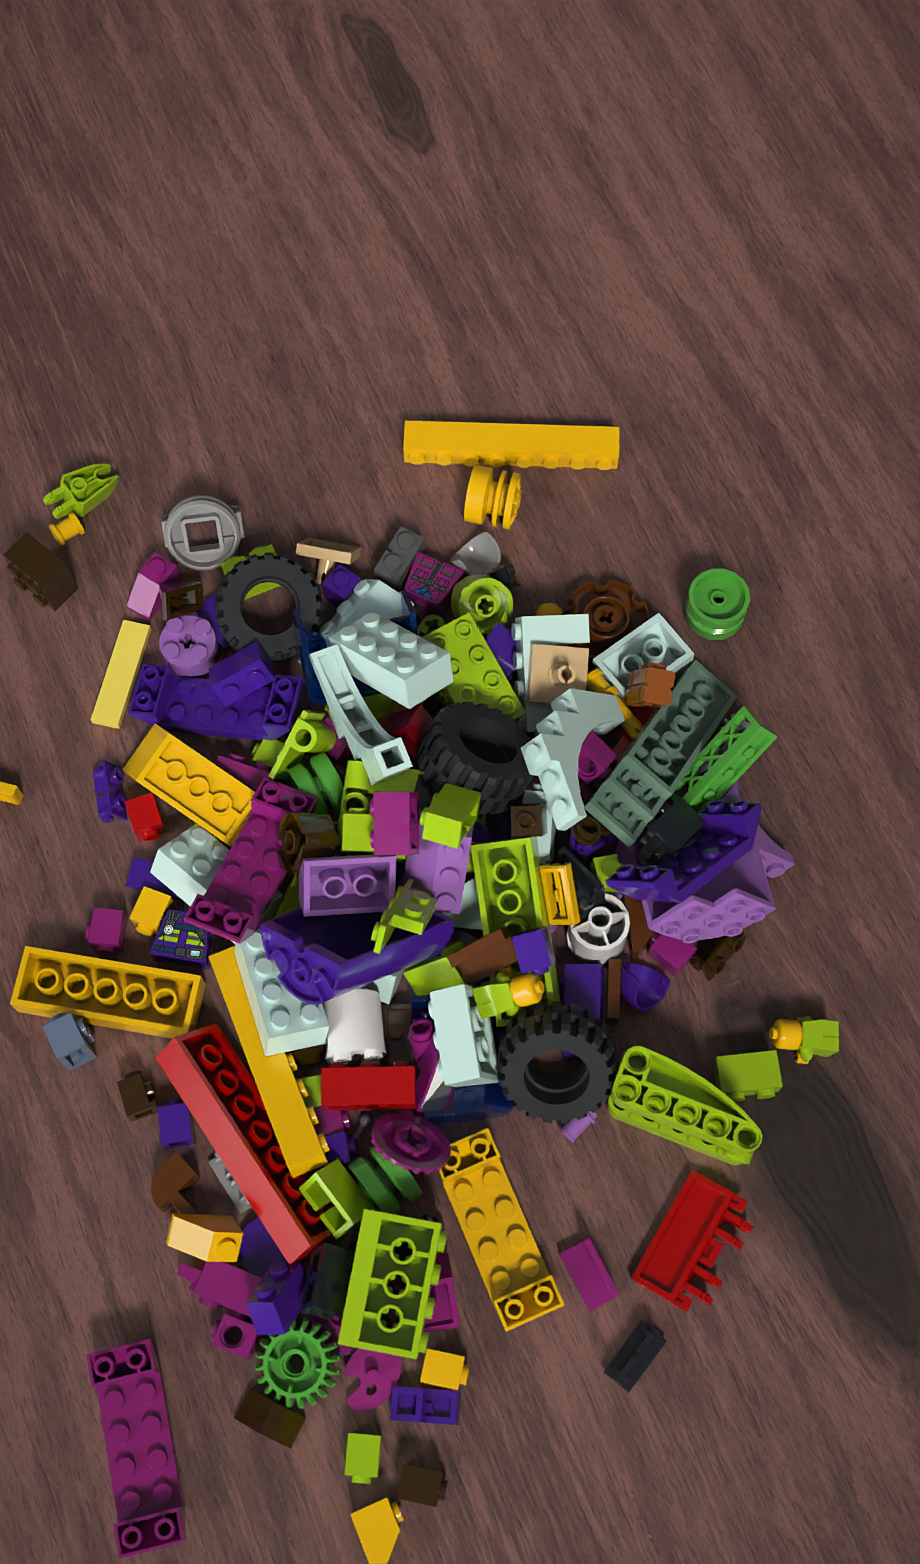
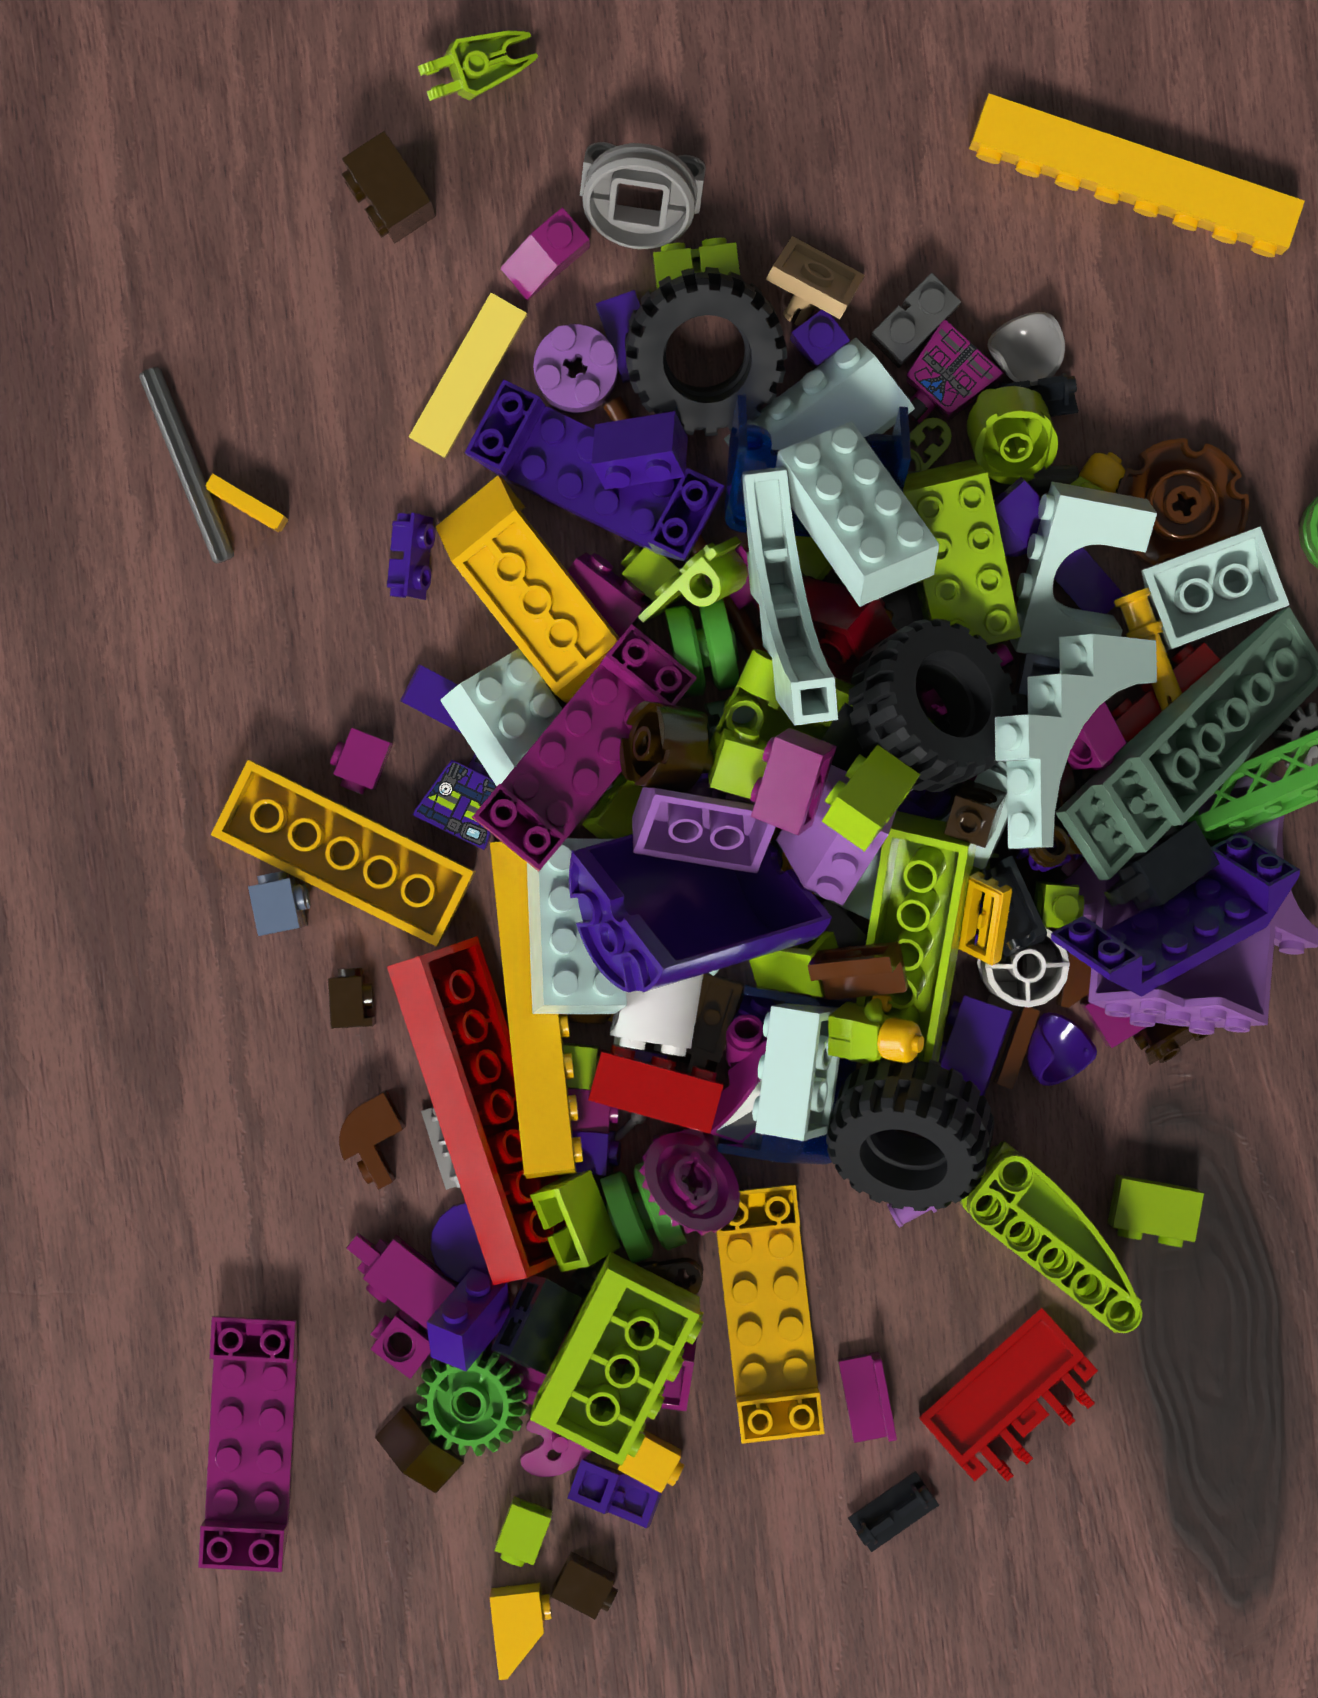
camera: 20 degrees right, 20 degrees up
(66, 529) = (441, 118): yellow bush -> none
(145, 817) = (451, 611): red brick -> none
(150, 911) = (427, 751): yellow brick -> none
(176, 1124) = (391, 1052): dark purple brick -> none
(180, 599) = (579, 295): dark brown slope -> none
(206, 1236) = (397, 1214): yellow slope -> none
(405, 911) = (775, 903): lime bracket -> none
(492, 497) = (1081, 263): yellow wheel -> none
(534, 950) = (926, 991): dark purple brick -> none
(555, 671) = (1084, 588): tan tile -> none
(649, 686) = (1206, 650): dark orange brick -> none
(806, 1036) = (1249, 1183): piece -> none

